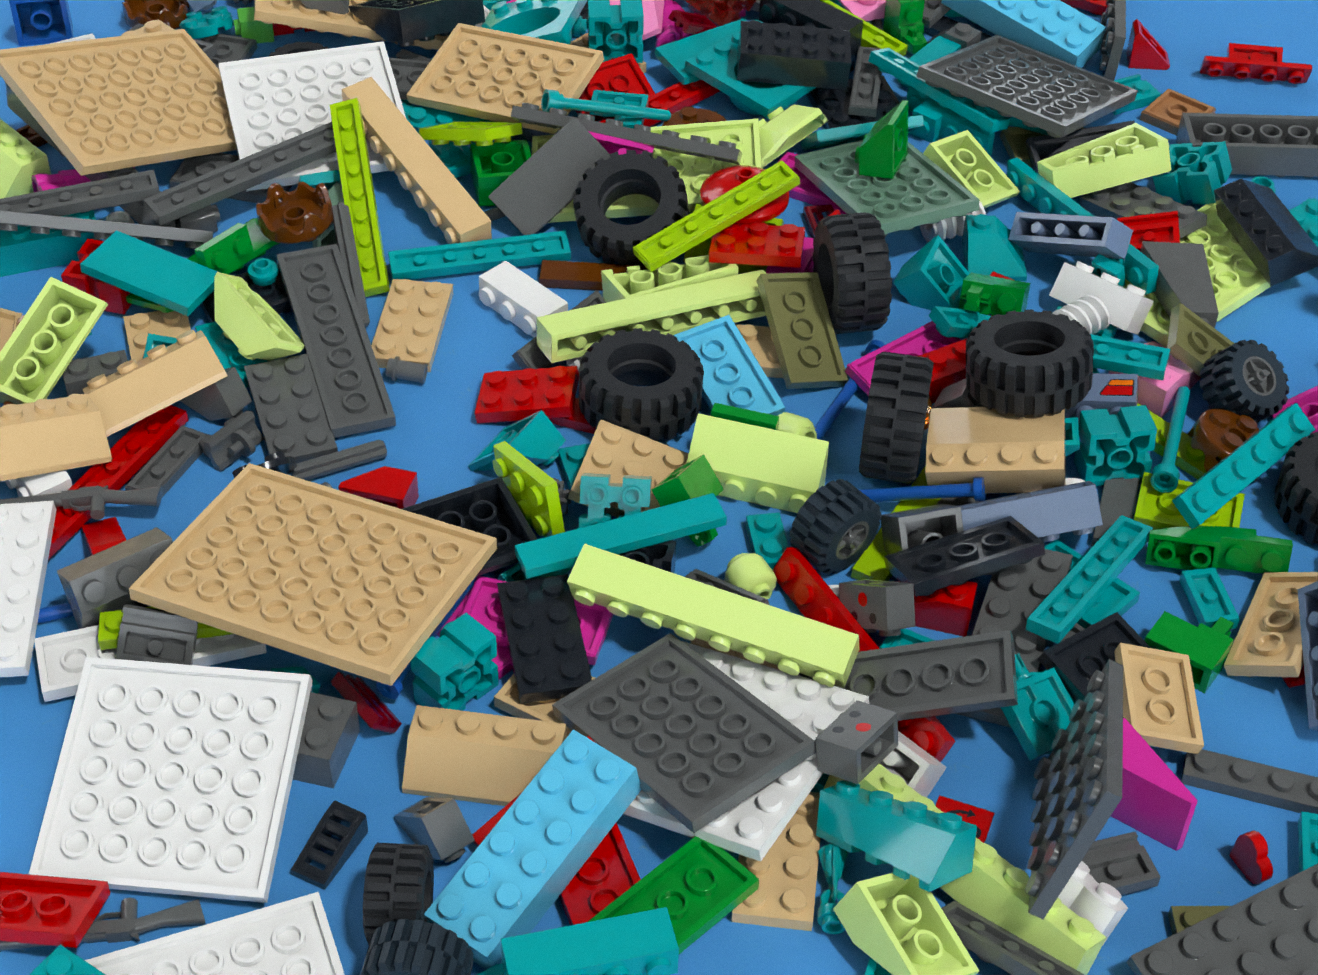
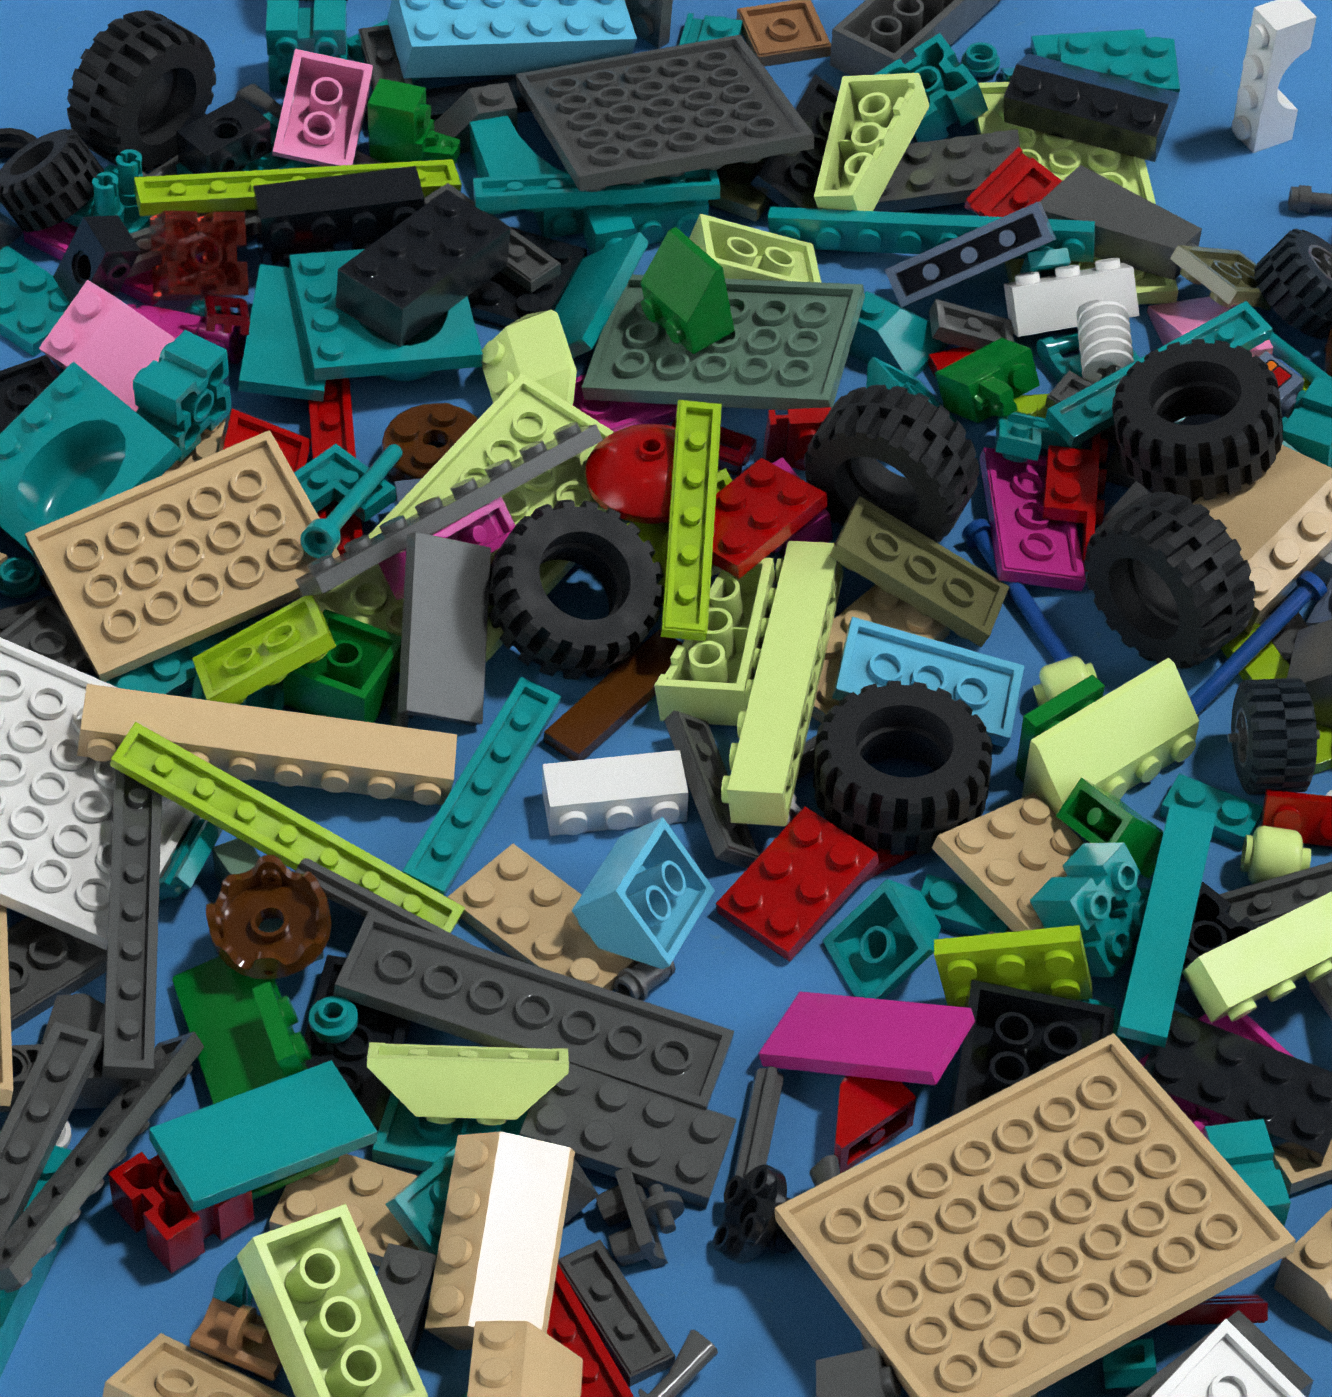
camera: 55 degrees left, 5 degrees up
(426, 461) = (867, 1037): none -> dark pink tile
(450, 337) = (644, 896): none -> medium azure slope
(1026, 268) = (967, 326): none -> dark grey plate

